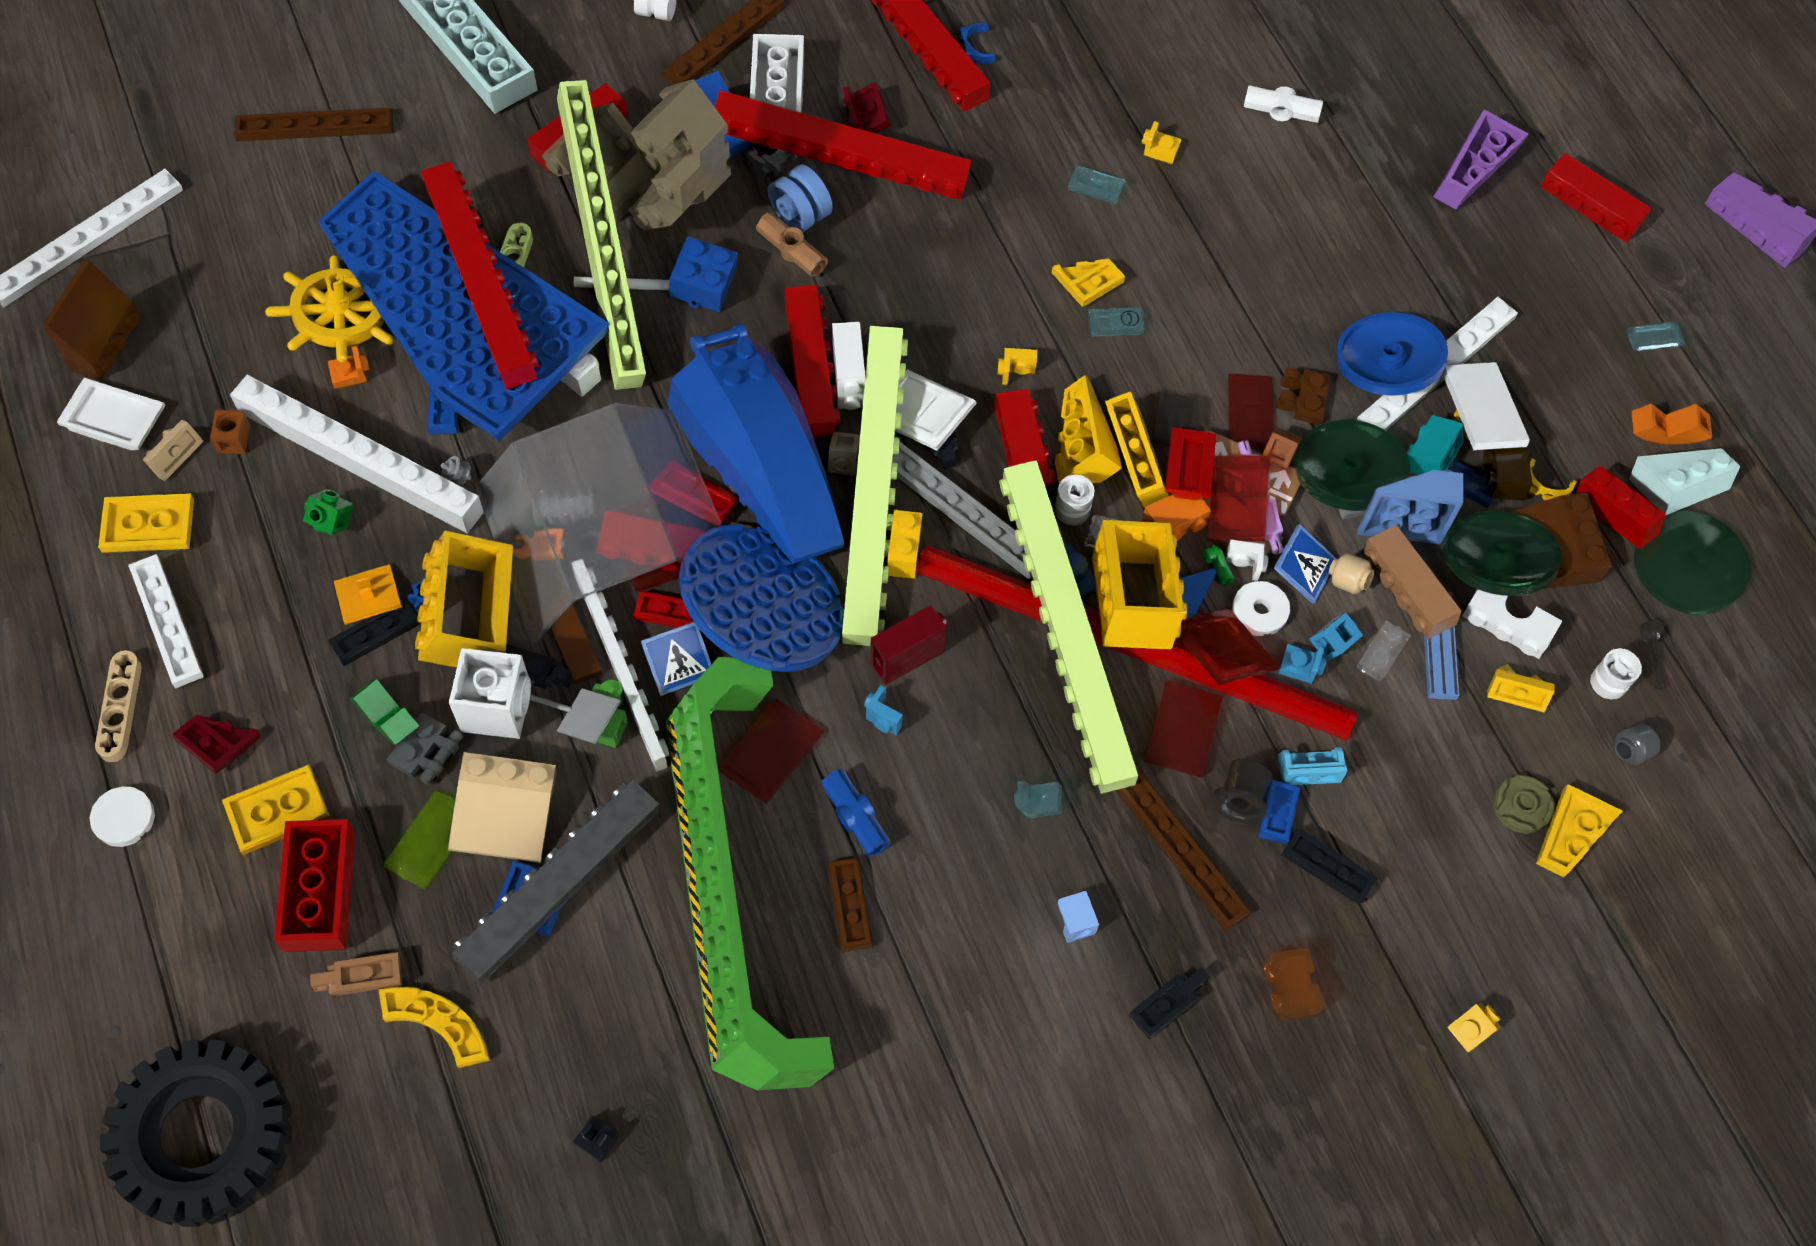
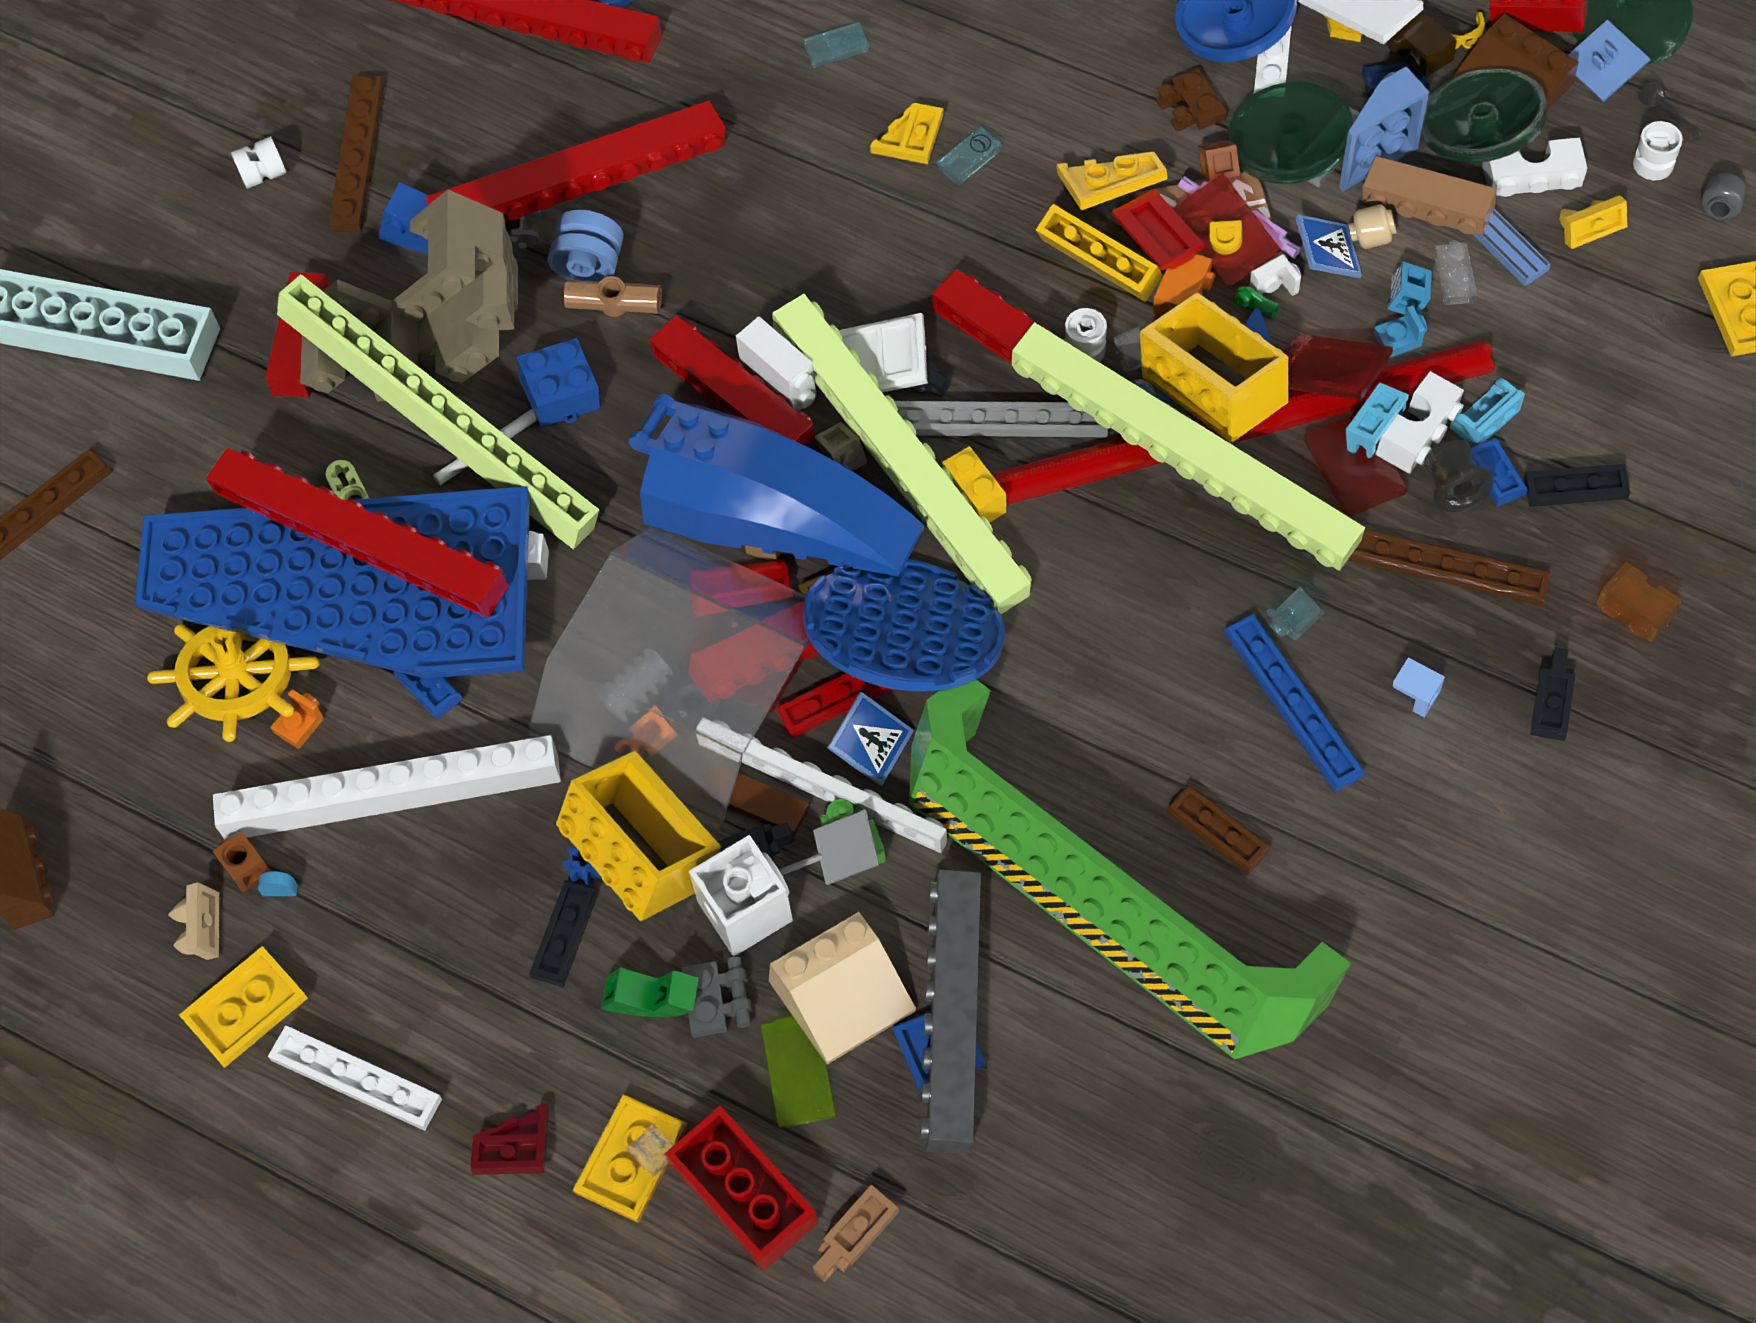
camera: 30 degrees left, 0 degrees up
(110, 414) = (100, 938): white piece -> none
(114, 705) = (388, 1186): tan beam -> none
(122, 816) = (491, 1280): white tile -> none
(238, 462) = (277, 884): none -> dark azure tile
(287, 810) = (650, 1150): none -> clear tile
(327, 512) = (415, 860): green brick -> none
(367, 594) = (524, 905): light orange piece -> none
(441, 1016) = (956, 1209): yellow tile -> none
(456, 471) = (499, 730): light grey wheel -> none
(596, 1138) = (1193, 1195): black tile -> none
(770, 750) = (1027, 750): clear red piece -> none
(778, 70) = (447, 145): white brick -> none
(855, 812) = (1151, 748): blue piece -> none
(866, 108) = (562, 121): dark red bracket -> none
(880, 715) = (1094, 649): dark azure bracket -> none
(908, 644) = (1065, 569): dark red brick -> none
(984, 860) = (1294, 703): none -> blue tile
(1017, 361) = (919, 253): yellow bracket -> none
(1086, 436) = (1039, 276): yellow wedge -> none
(1188, 404) = (1105, 181): none -> yellow wing
(1219, 705) = (1375, 418): none -> medium azure hinge
(1231, 741) = (1409, 441): none -> white arch
(1235, 502) = (1226, 236): none -> yellow tile
(1250, 409) = (1148, 133): clear red piece -> none
(1268, 595) = (1324, 298): white tile -> none
(1436, 445) = (1344, 65): teal brick -> none
(1523, 804) = (1678, 315): olive tile -> none
(1639, 582) = (1607, 60): none -> medium blue piece

